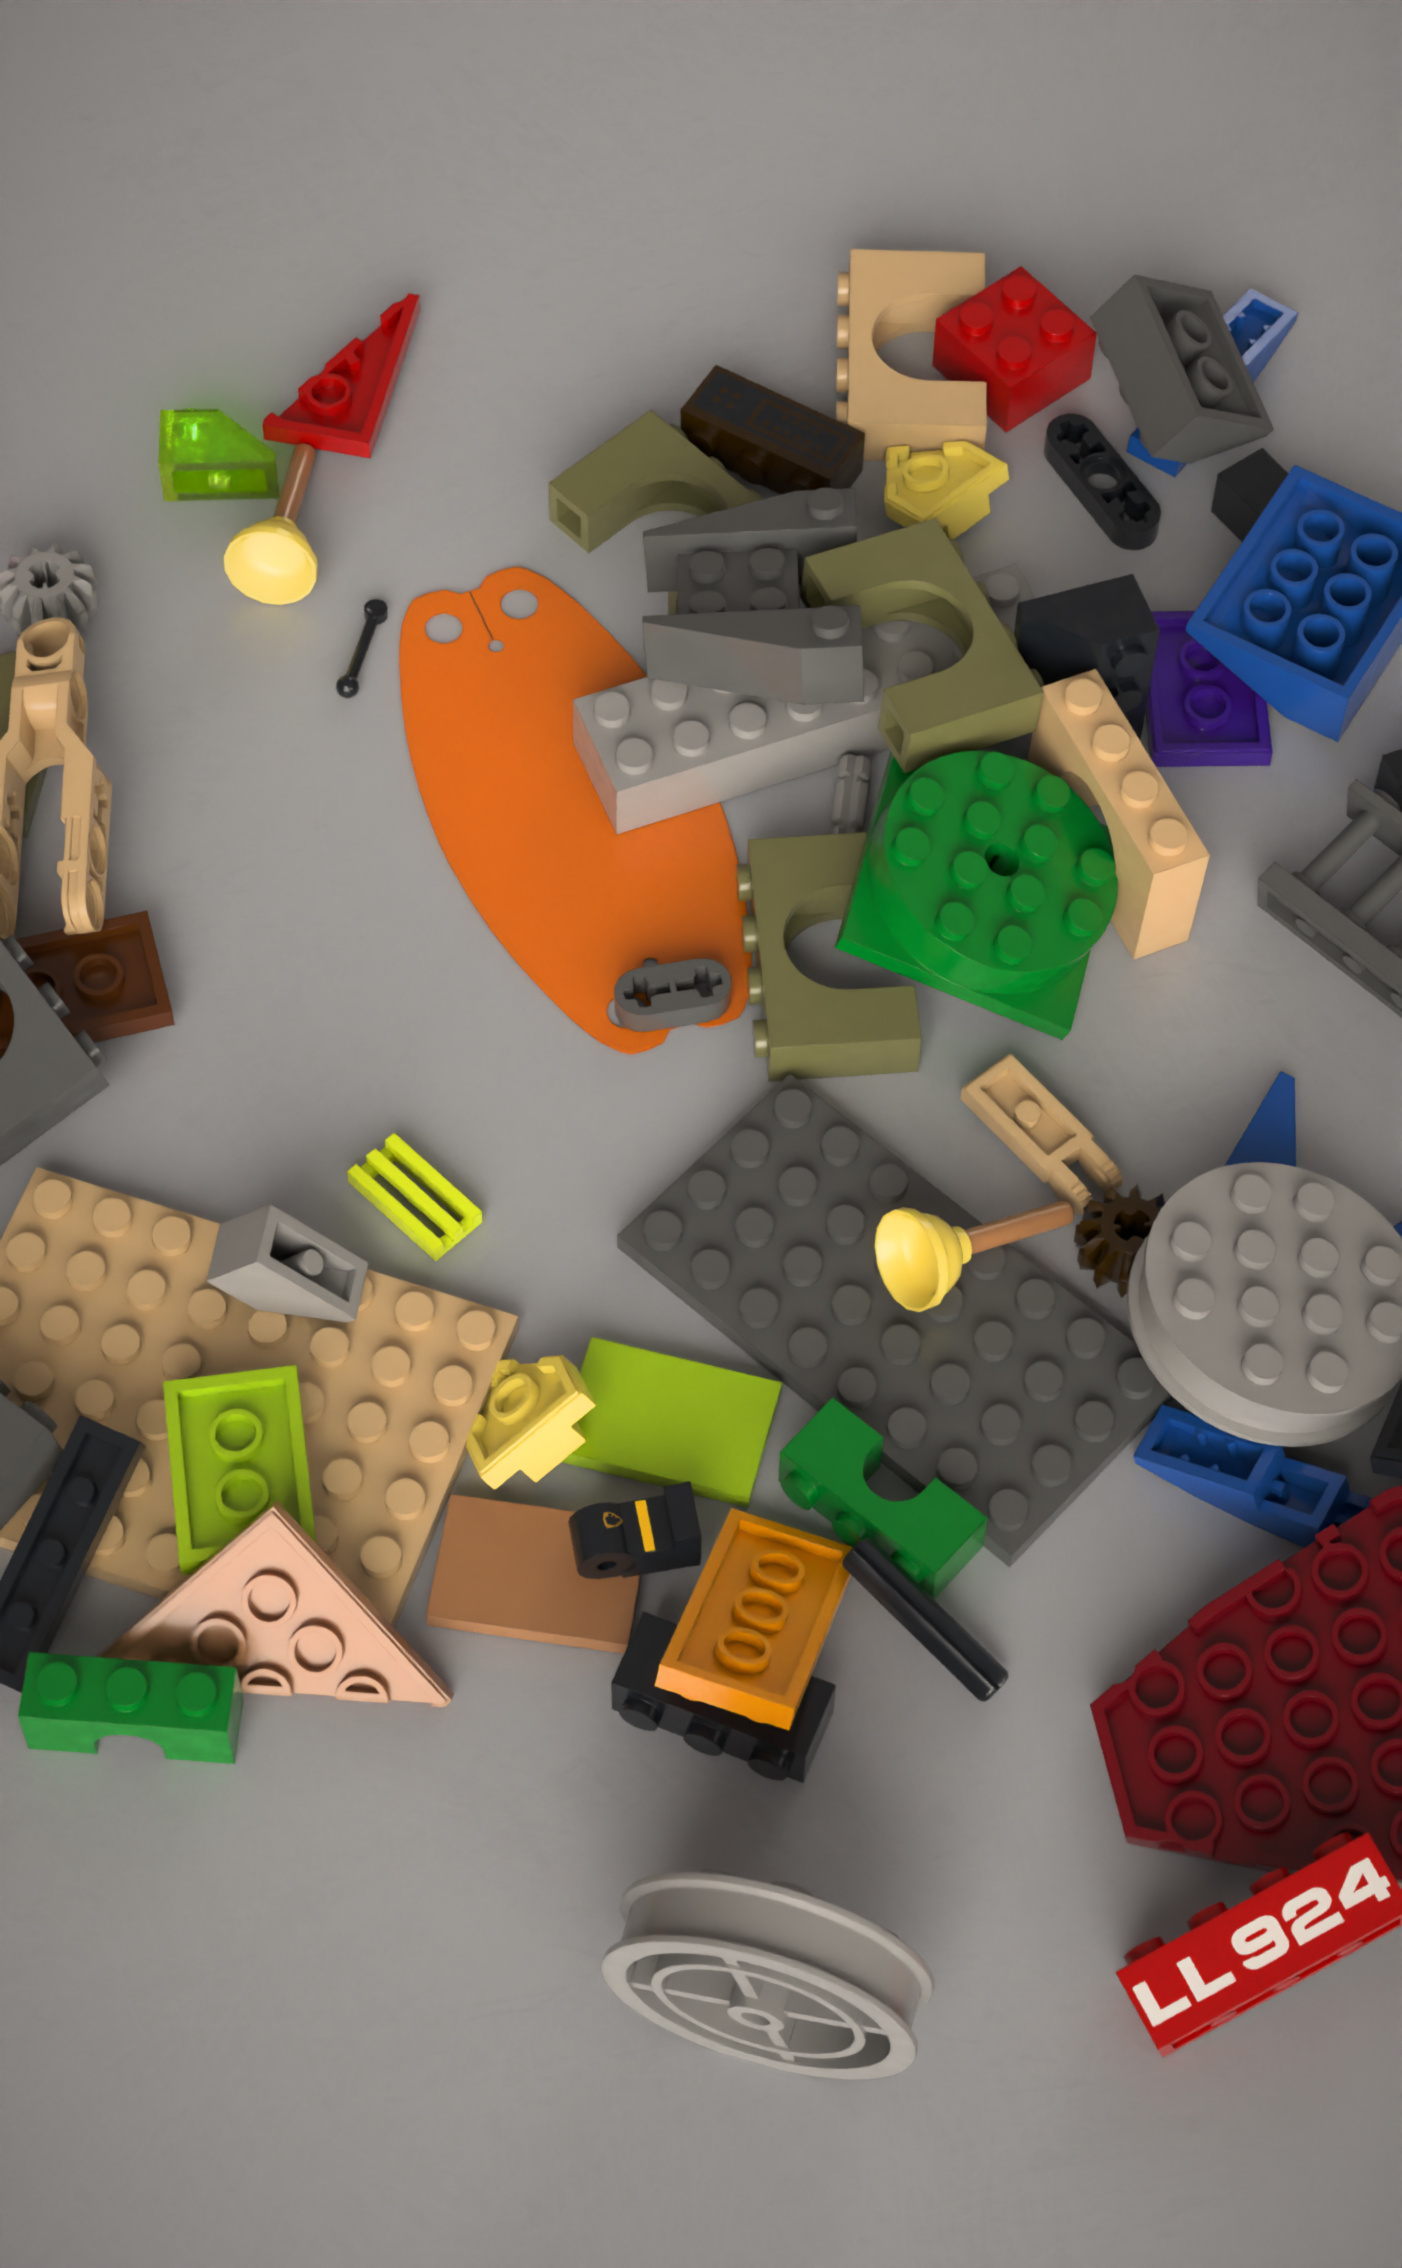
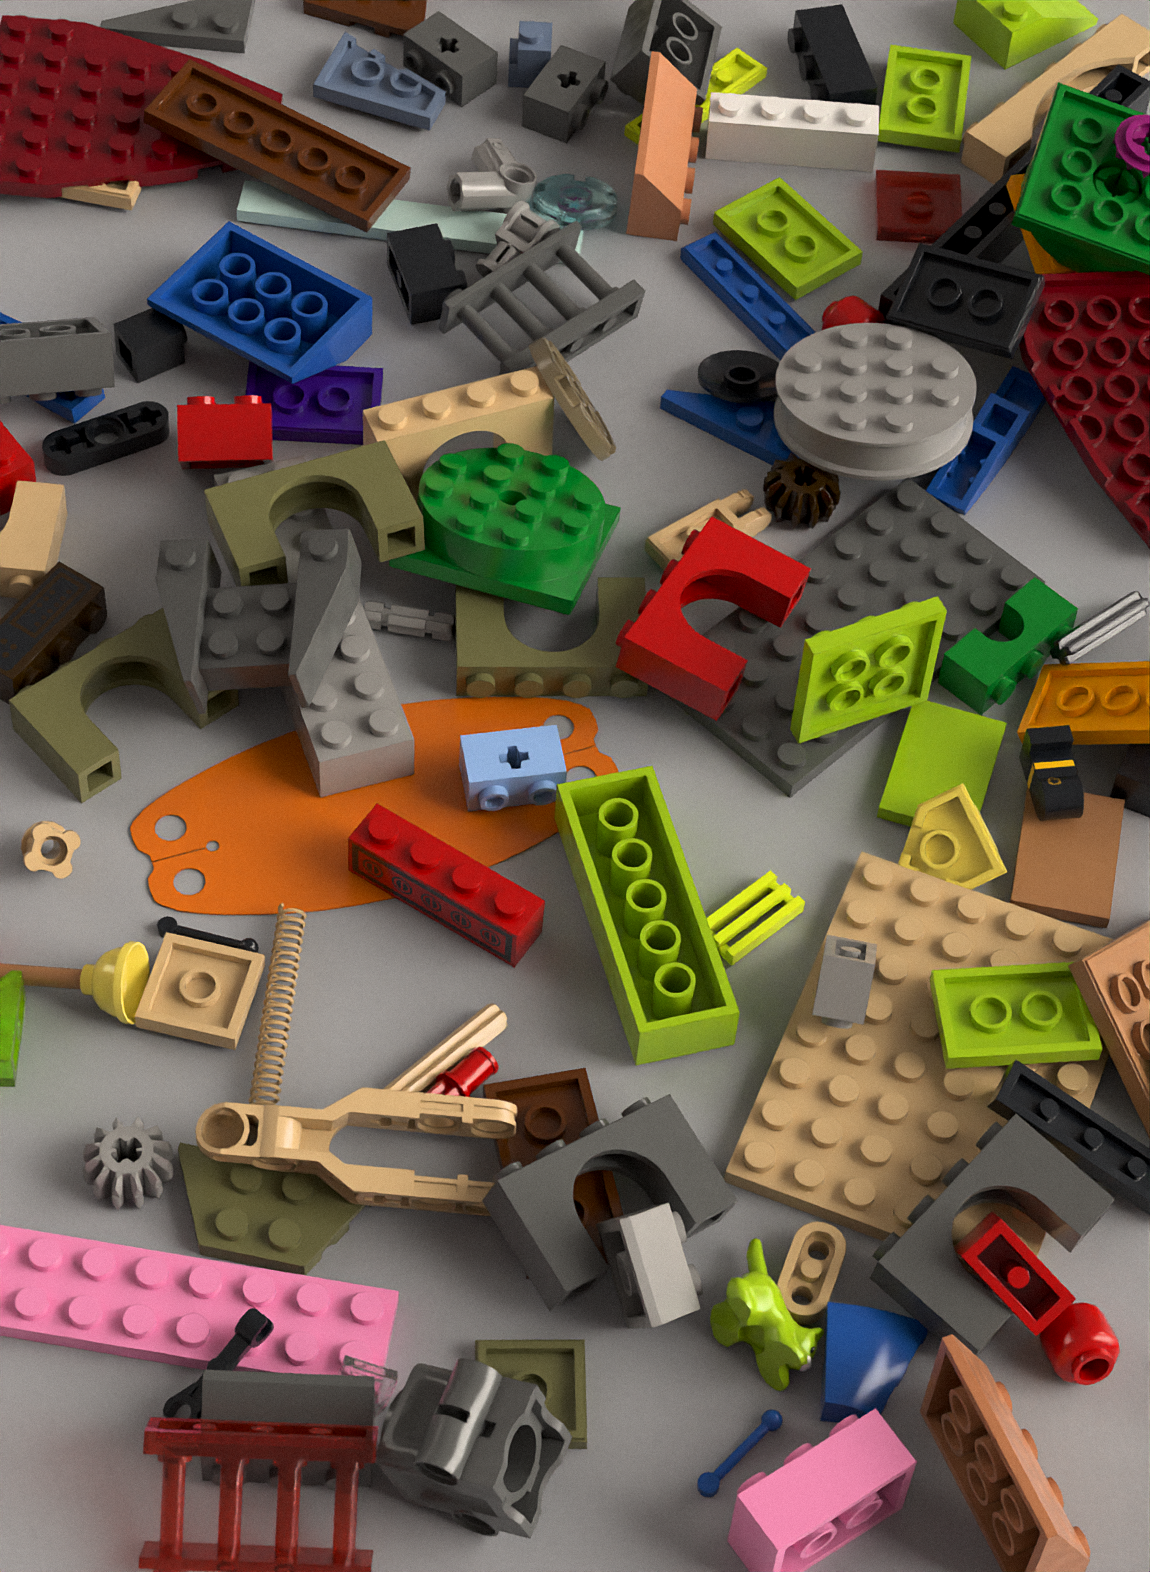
camera: 90 degrees left, 5 degrees down
(153, 890) = (467, 1074): none -> red axle
(198, 882) = (452, 1050): none -> tan axle
(255, 718) = (261, 1051): none -> tan piece
(278, 640) = (200, 991): none -> tan plate
(390, 1059) = (645, 916): none -> lime brick
(425, 856) = (445, 885): none -> red brick
(457, 477) = (59, 857): none -> tan brick
(609, 916) = (511, 767): none -> light blue brick
(672, 995) = (586, 740): dark grey beam -> none
(737, 1256) = (867, 669): none -> lime plate
(794, 1039) = (714, 565): none -> red arch
(924, 1255) = (838, 585): light yellow piece -> none
(941, 485) = (101, 534): light yellow plate -> none
(1076, 543) = (224, 433): none -> red brick
(1093, 628) = (329, 408): black slope -> none
(1207, 931) = (572, 398): none -> dark tan tile
(1335, 1145) = (739, 376): none -> black dish

